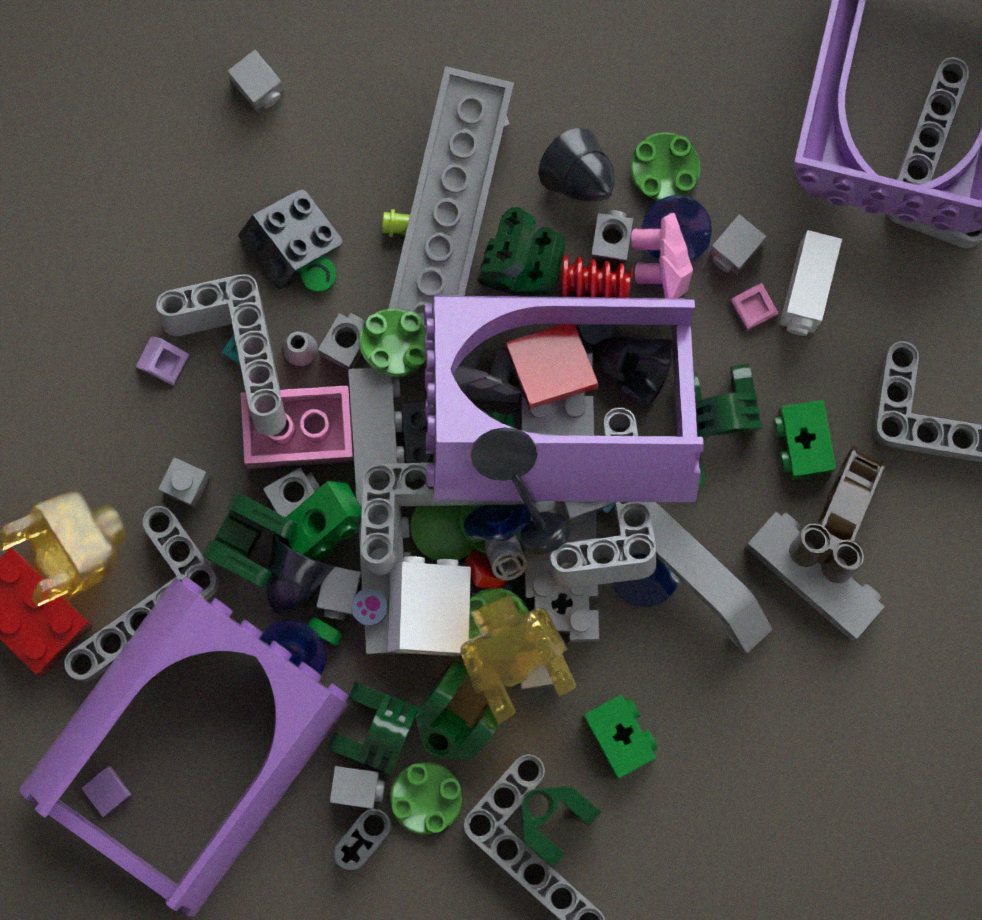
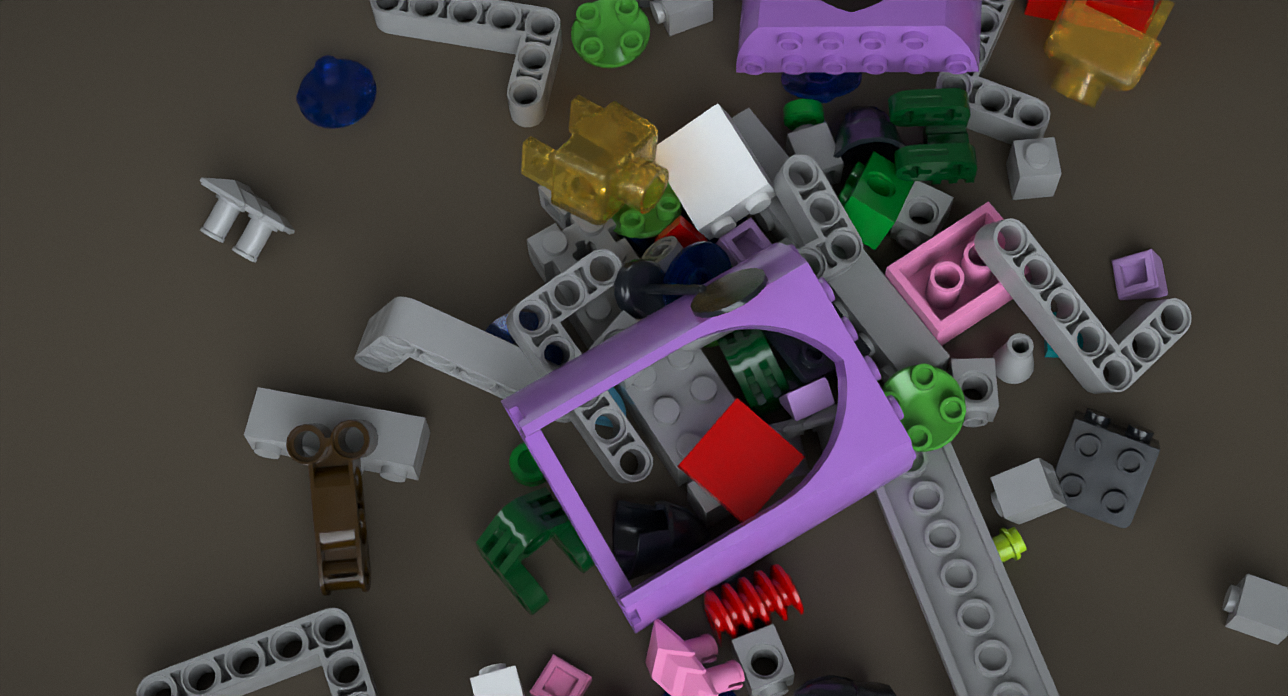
camera: 155 degrees right, 15 degrees down
(319, 275) = (1045, 443): green tile -> none
(358, 246) = (1027, 491): none -> light grey brick
(369, 607) = (773, 143): sand blue tile -> none
(386, 732) = (683, 61): dark green piece -> none
(438, 543) = (743, 242): none -> lavender slope
(445, 732) = (633, 86): dark green piece -> none
(476, 390) = (808, 399): none -> lavender slope
(520, 256) = (854, 565): dark green piece -> none
(572, 800) = (471, 40): dark green piece -> none
(602, 725) = (454, 178): green brick -> none
(669, 871) = (336, 93): none -> clear blue dish
(793, 813) = (238, 197): none -> light grey connector
(818, 455) = (432, 590): green brick -> none

